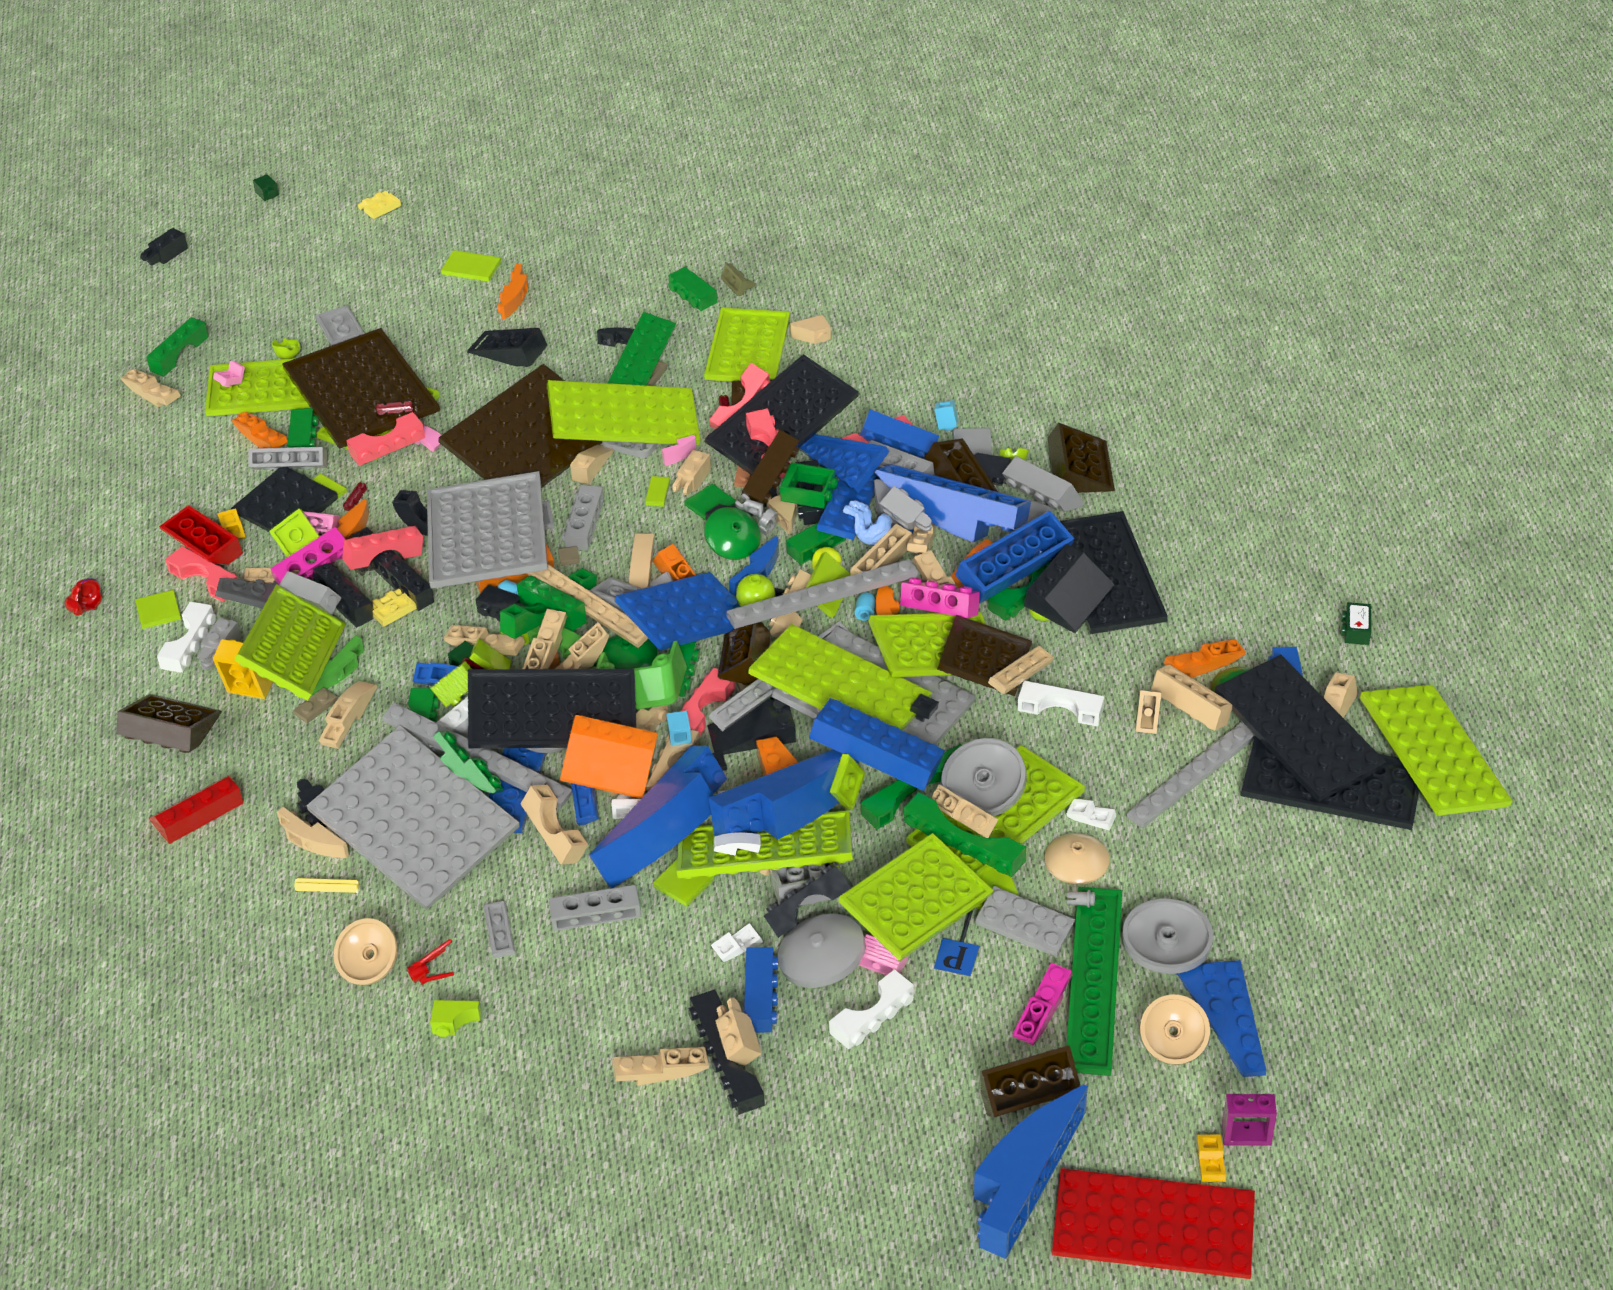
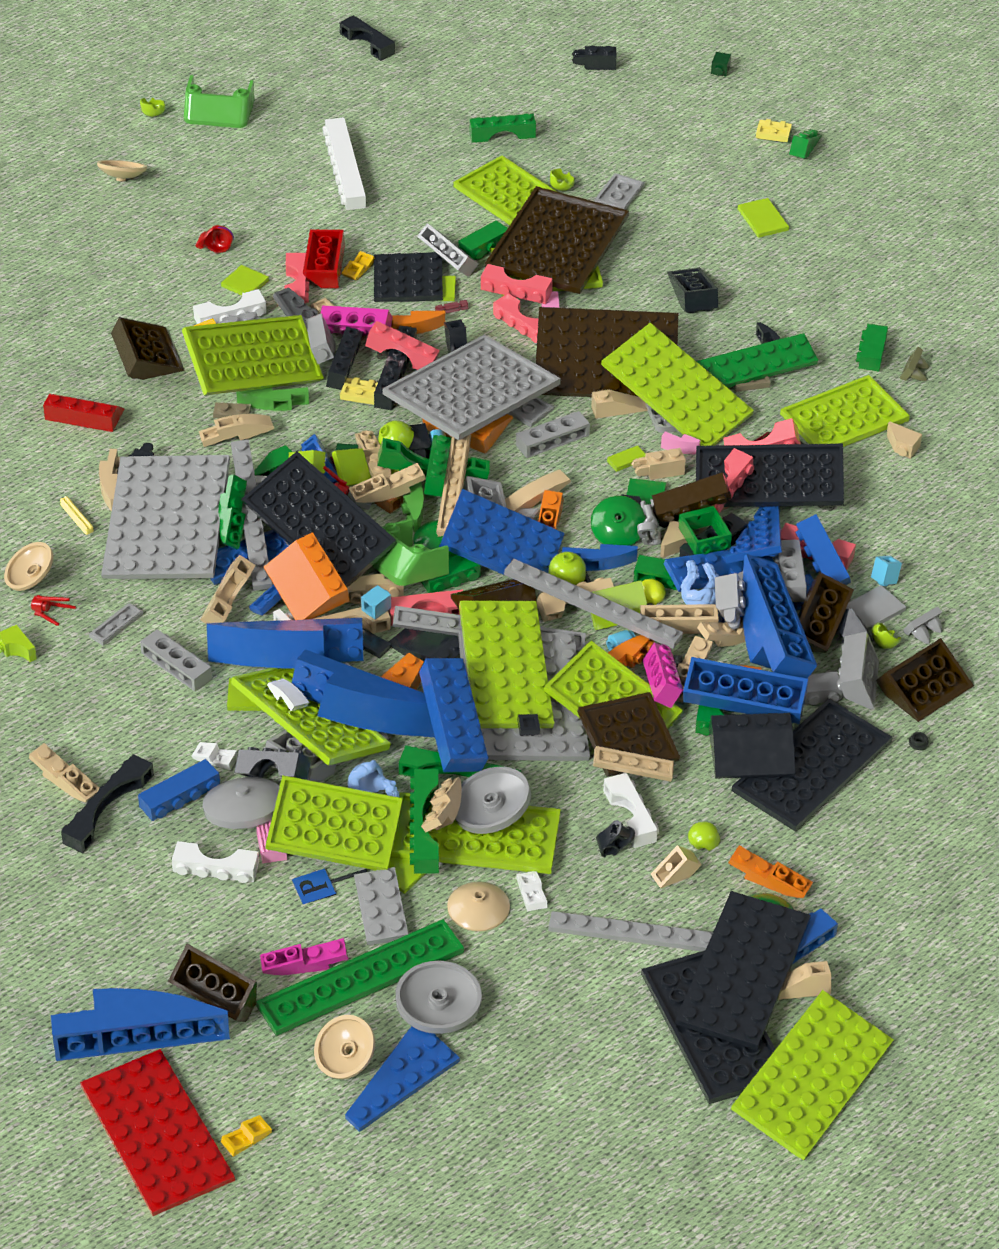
camera: 50 degrees right, 0 degrees up
(92, 464) = (344, 164): none -> white brick
(148, 388) = (448, 141): tan slope -> none
(231, 376) = (495, 170): bright pink bracket -> none
(258, 432) = (461, 219): orange slope -> none
(294, 532) = (374, 295): lime plate -> none
(323, 522) = (398, 300): bright pink brick -> none
(396, 407) = (548, 267): dark red axle -> none
(406, 463) = (508, 309): none -> coral arch
(418, 196) = (804, 143): none -> green slope
(484, 611) = (396, 431): none -> lime cylinder
(513, 293) = (755, 257): orange slope -> none
(568, 556) = (508, 450): dark tan tile -> none
(586, 650) = (400, 510): tan slope -> none
(737, 1033) = (119, 796): tan hinge -> none
(847, 782) = (412, 724): lime tile -> none
(873, 847) = (370, 778): none -> light blue hair
(1018, 429) = (918, 626): none -> light grey tile
(1082, 898) = (429, 927): light grey pin -> none
(1086, 732) = (612, 838): none -> black piece
(1125, 675) = (704, 835): none -> lime hair
(1137, 500) = (922, 738): none -> pearl dark grey plate
(1192, 697) = (713, 885): tan brick -> none
(1257, 1132) = (288, 1134): magenta window -> none
(1357, 623) = (915, 953): brick -> none

